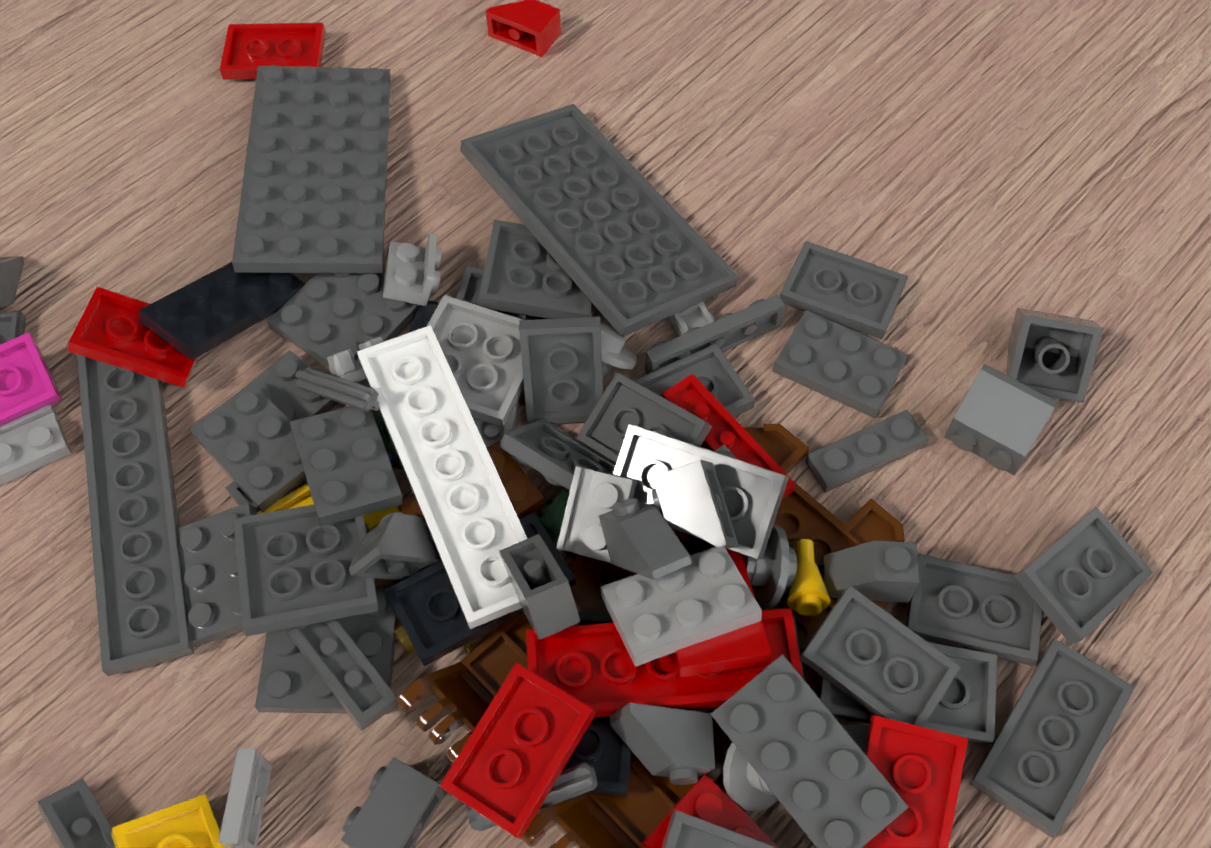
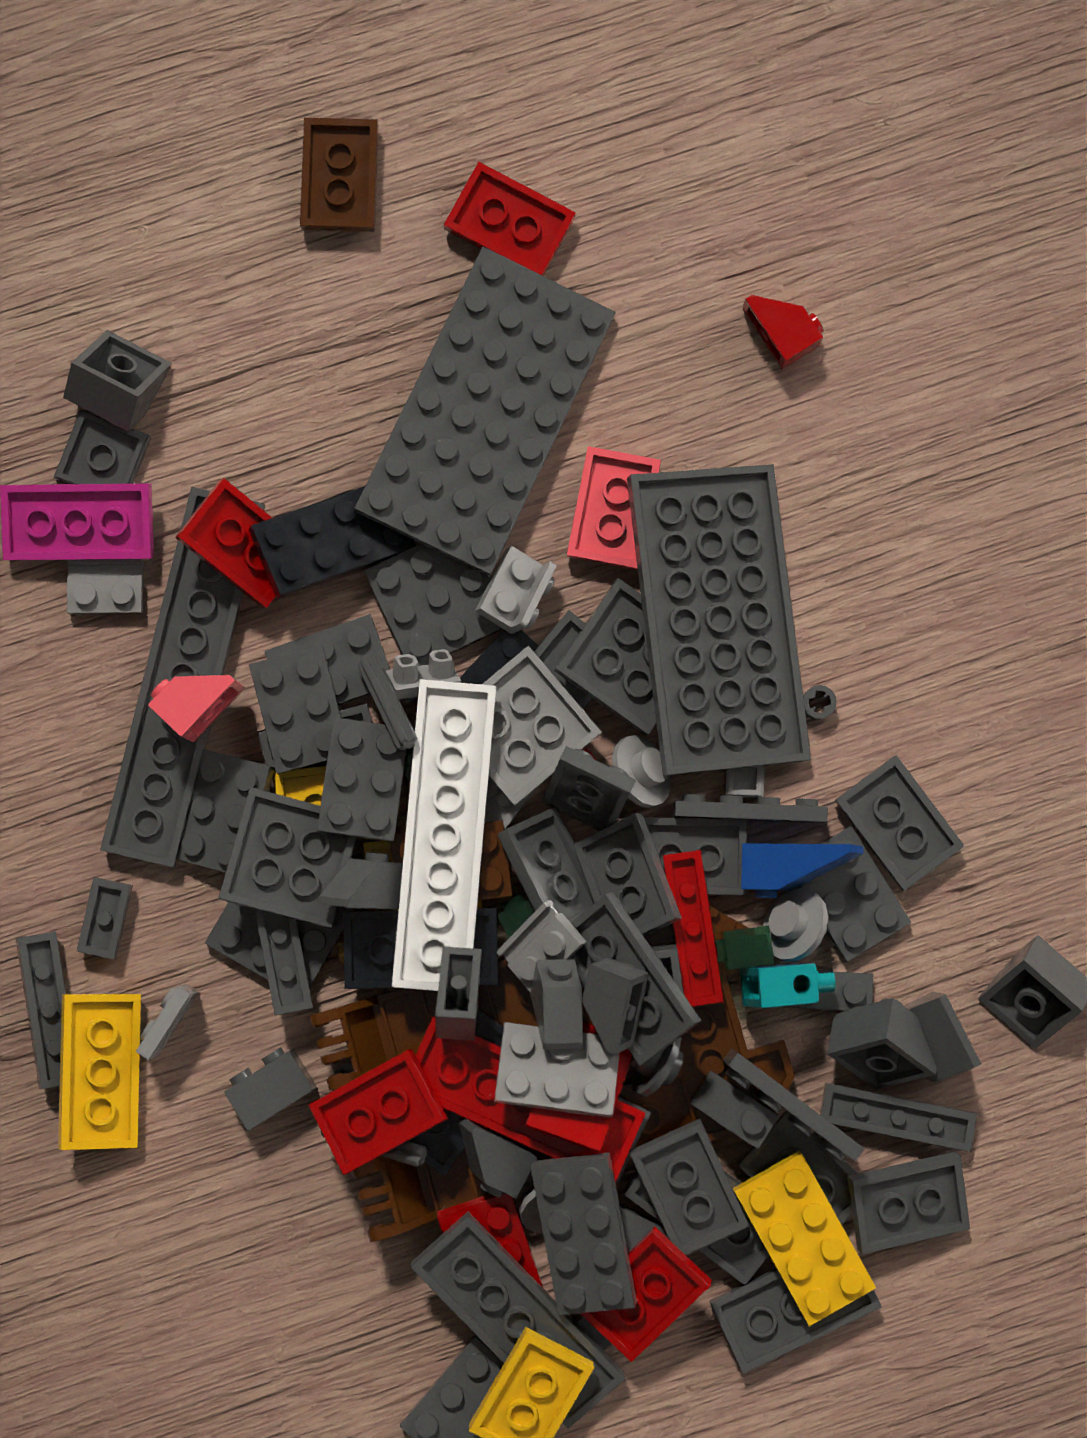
camera: 30 degrees right, 25 degrees up
(117, 78) = (339, 174): none -> reddish brown plate
(134, 738) = (104, 918): none -> dark grey plate
(143, 470) = (194, 702): none -> coral slope
(459, 192) = (603, 514): none -> coral plate
(721, 232) = (827, 710): none -> dark grey bush
(776, 351) = (788, 866): none -> blue slope
(785, 430) = (745, 948): none -> clear green brick
(808, 590) = (677, 1096): yellow cone -> none
(814, 398) = (796, 924): none -> light grey piece
(836, 439) = (774, 984): none -> teal torso
(938, 529) = (801, 1114): none -> dark grey plate
(959, 449) = (881, 1044): none -> dark grey slope
(1014, 513) = (898, 1117): none -> dark grey plate
(1021, 658) = (804, 1238): none -> yellow plate

